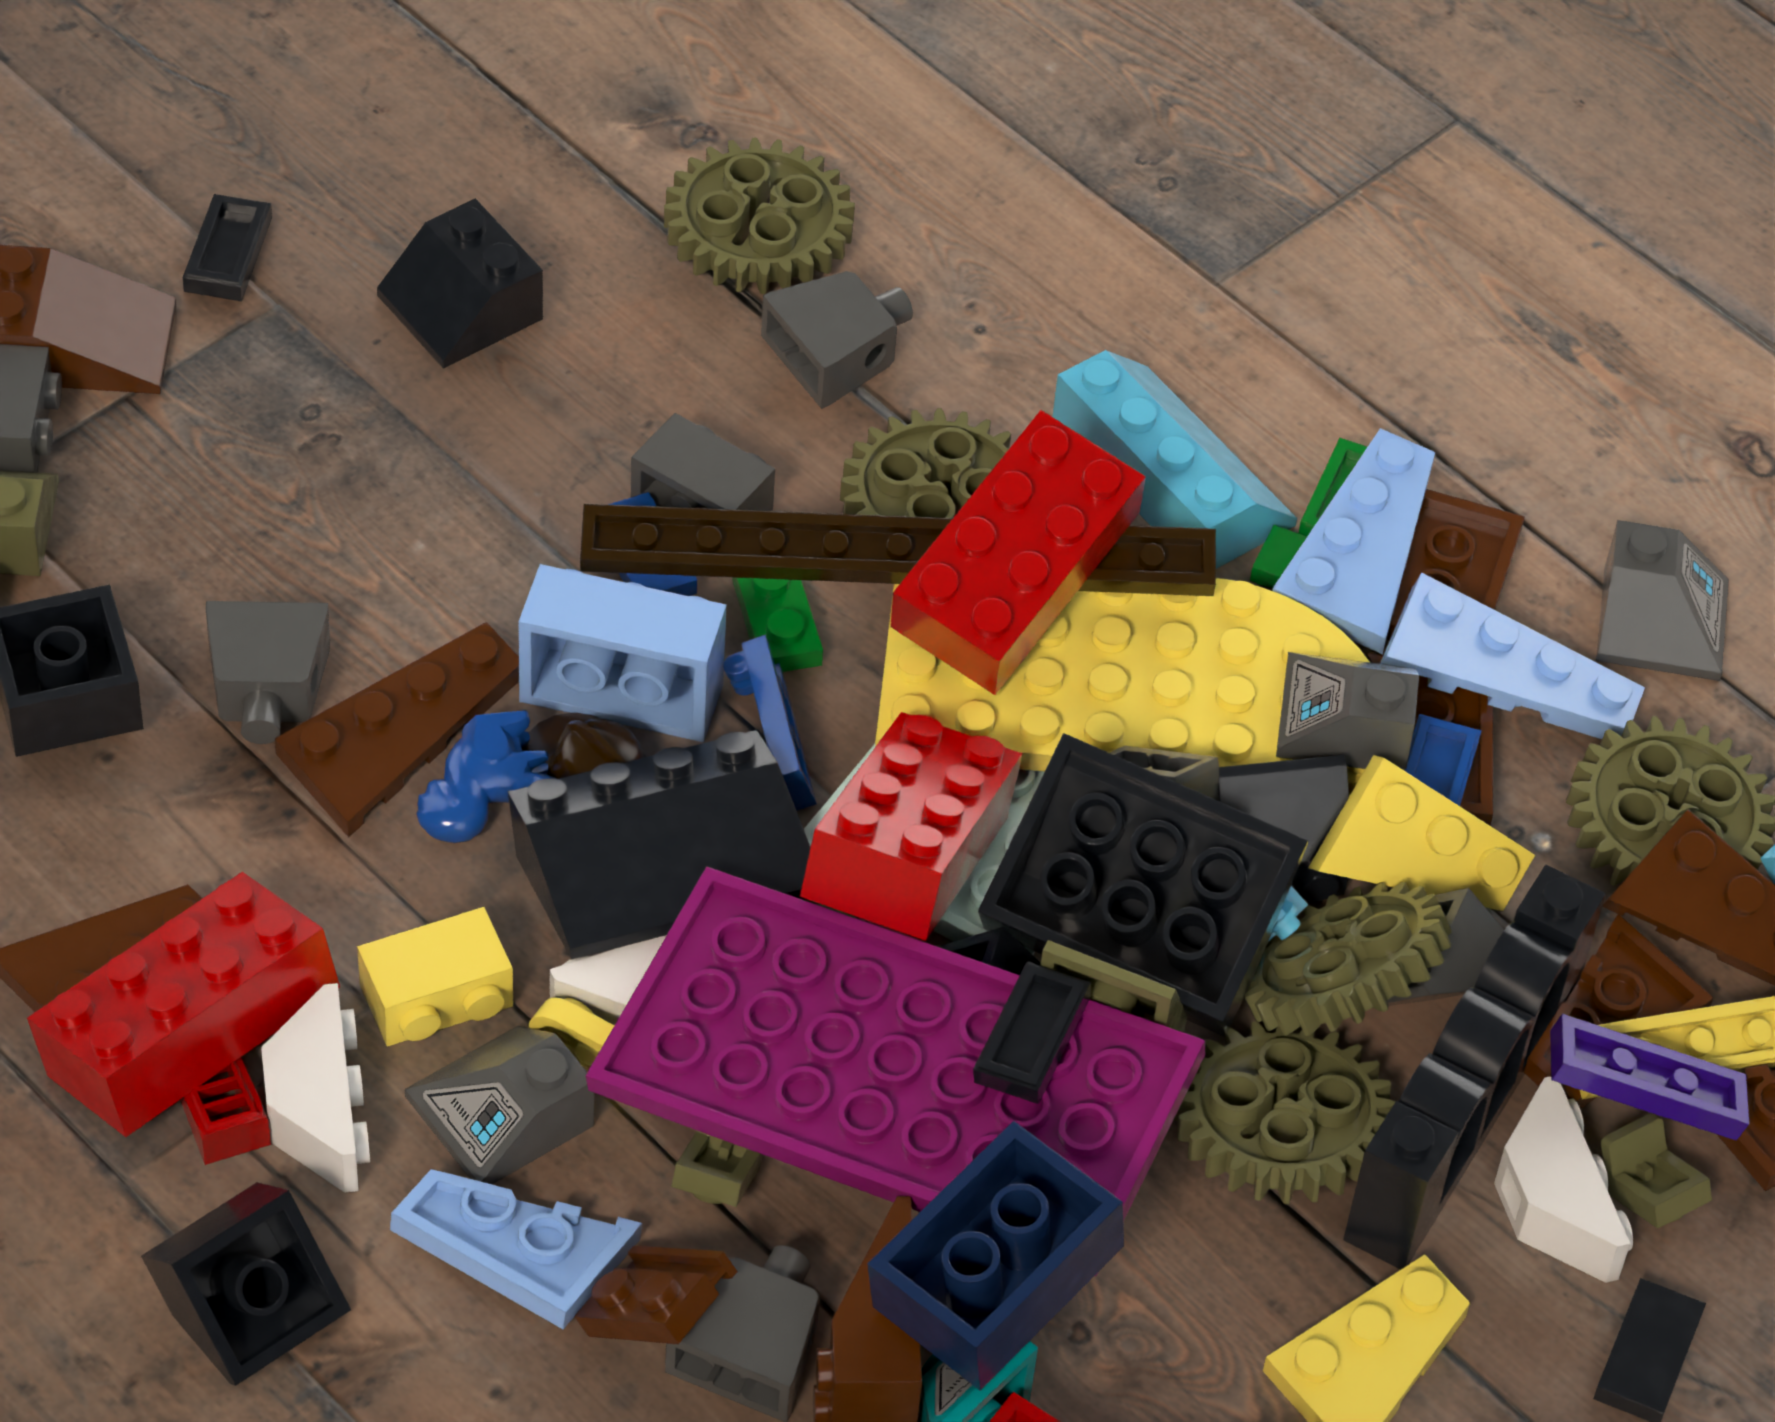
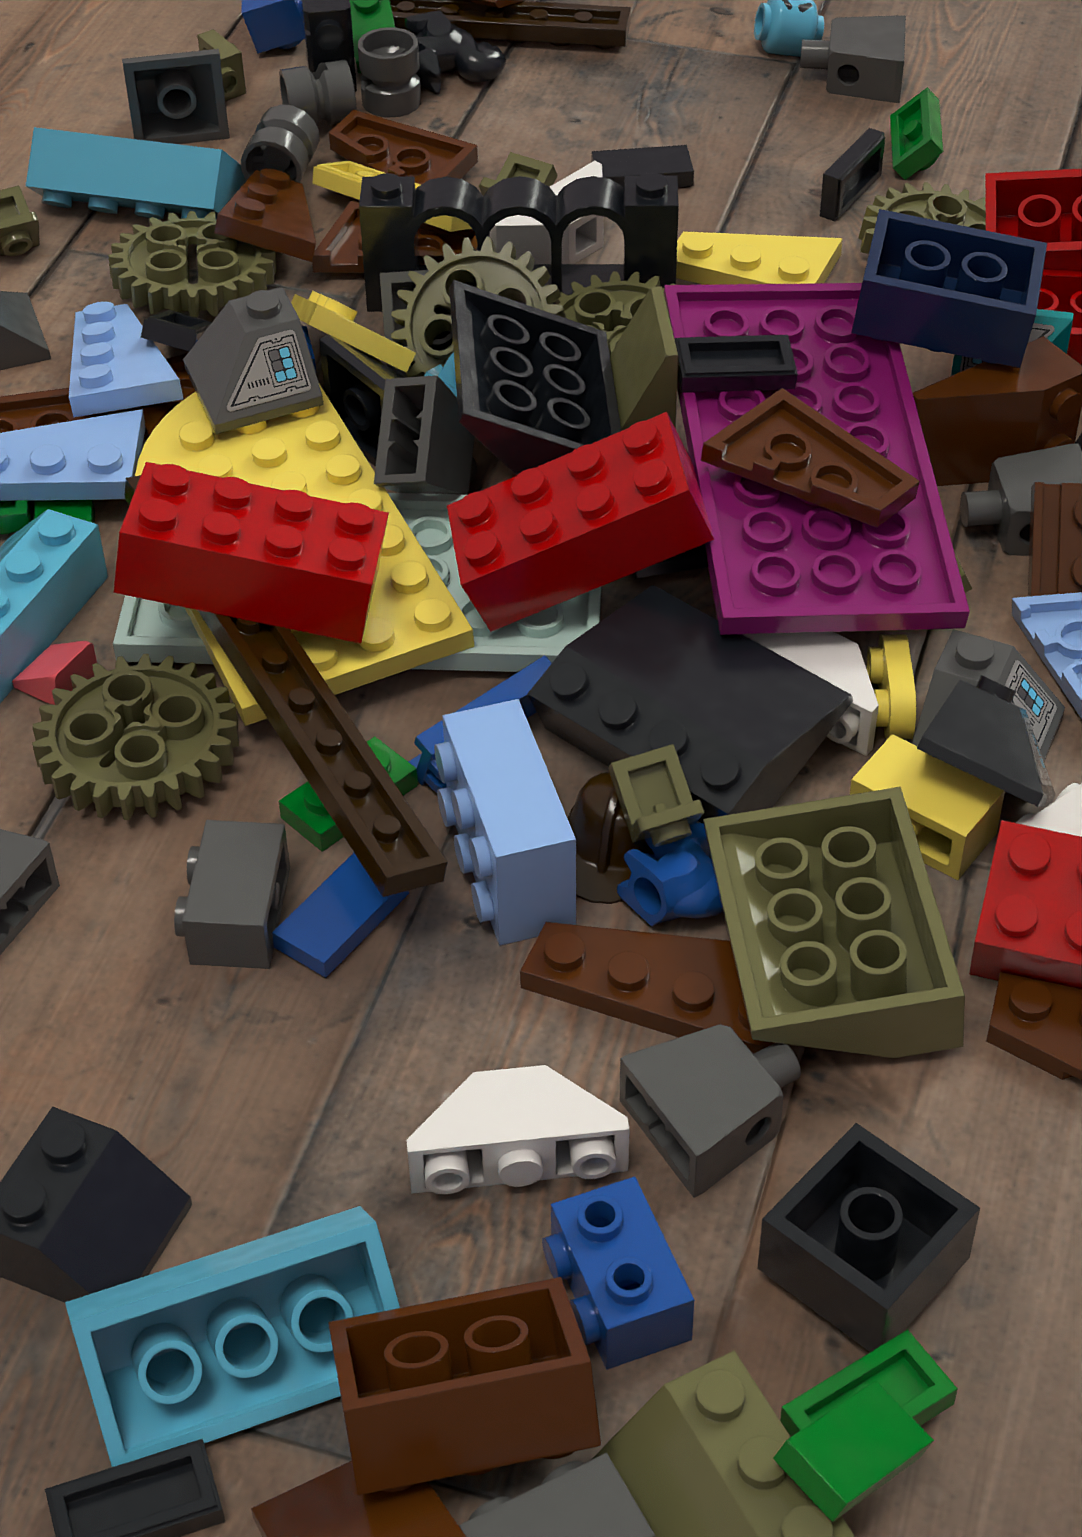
camera: 115 degrees left, 5 degrees down
(140, 390) = (464, 1385): none -> reddish brown brick
(168, 540) = (620, 1273): none -> blue brick
(299, 328) = (227, 1335): none -> medium azure slope
(333, 543) = (516, 1131): none -> white slope
(346, 813) = (837, 927): none -> olive slope
(422, 1013) = (990, 740): none -> black slope
(550, 741) = (655, 796): none -> olive bracket
(852, 1014) = (811, 458): none -> reddish brown wing
(1523, 732) = (174, 329): none -> black tile
(1649, 1077) = (462, 161): dark purple plate -> none

